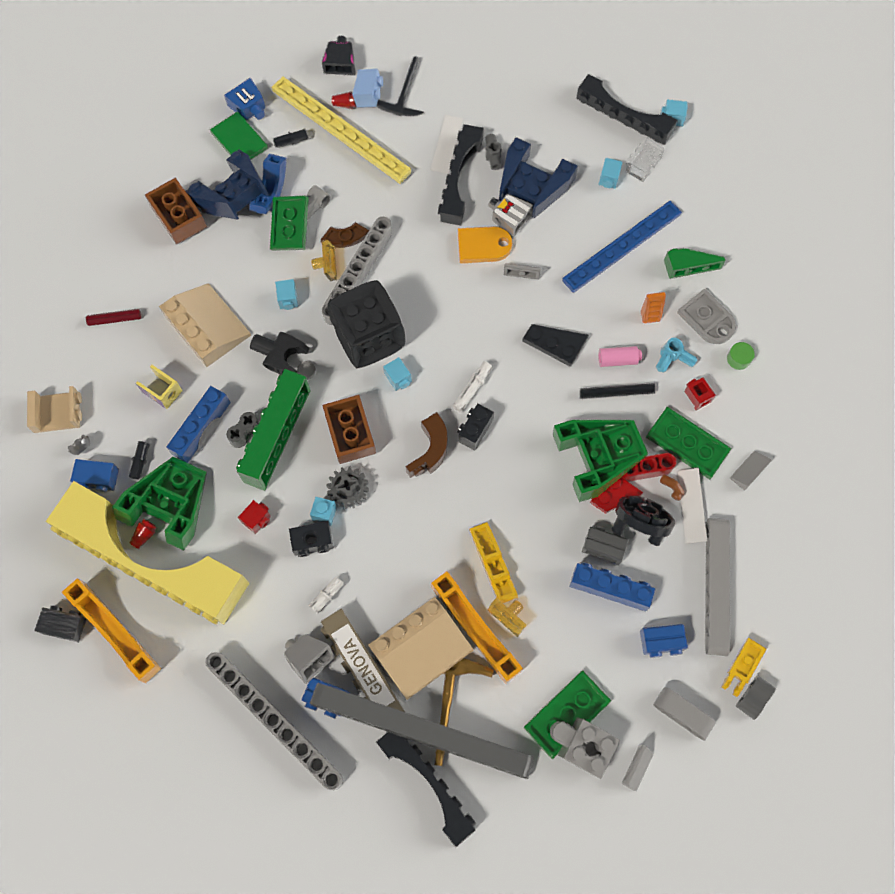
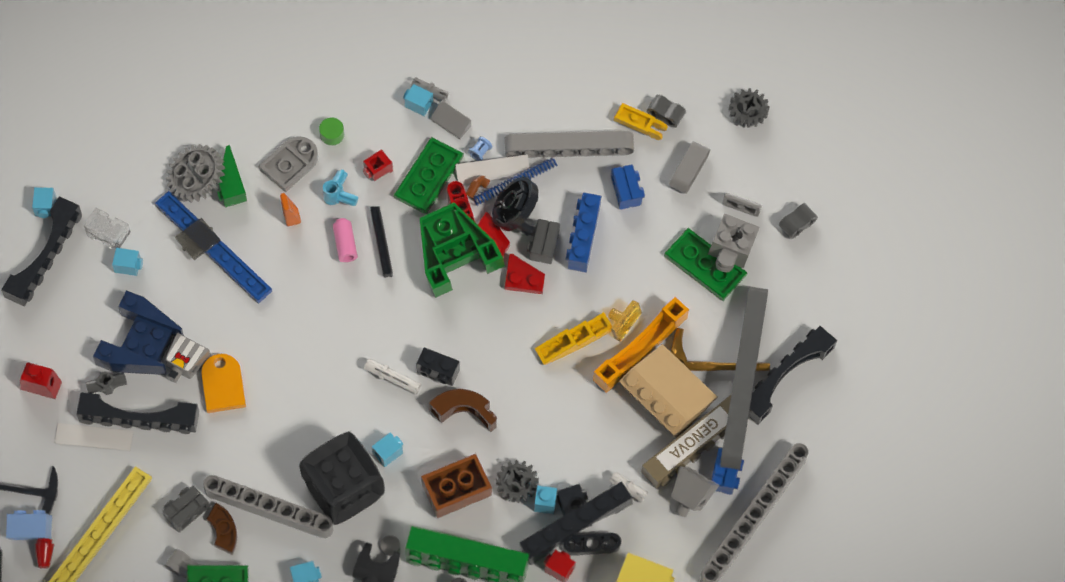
camera: 100 degrees left, 5 degrees down
(267, 565) = (597, 537): none -> black beam
(291, 536) = (600, 507): none -> black arch
(327, 262) = (260, 541): clear yellow tile -> none
(366, 205) = (185, 508): none -> dark grey brick
(503, 96) = (37, 380): none -> red torso
(522, 271) = (251, 341): light grey slope -> none
(556, 343) = (333, 302): black wing -> none
(568, 521) = (523, 276): none -> red wing
(611, 829) = (798, 220): none -> dark grey axle
(629, 231) = (197, 239): none -> clear smoke piece
(677, 531) = (518, 175): none -> blue piece
(697, 231) = (208, 166): none -> light grey gear
(715, 494) = (482, 143): none -> light blue bush
(761, 786) = (755, 113): none -> dark grey gear
(774, 439) = (418, 99): none -> medium azure brick
(786, 452) = (438, 93): none -> light grey pin

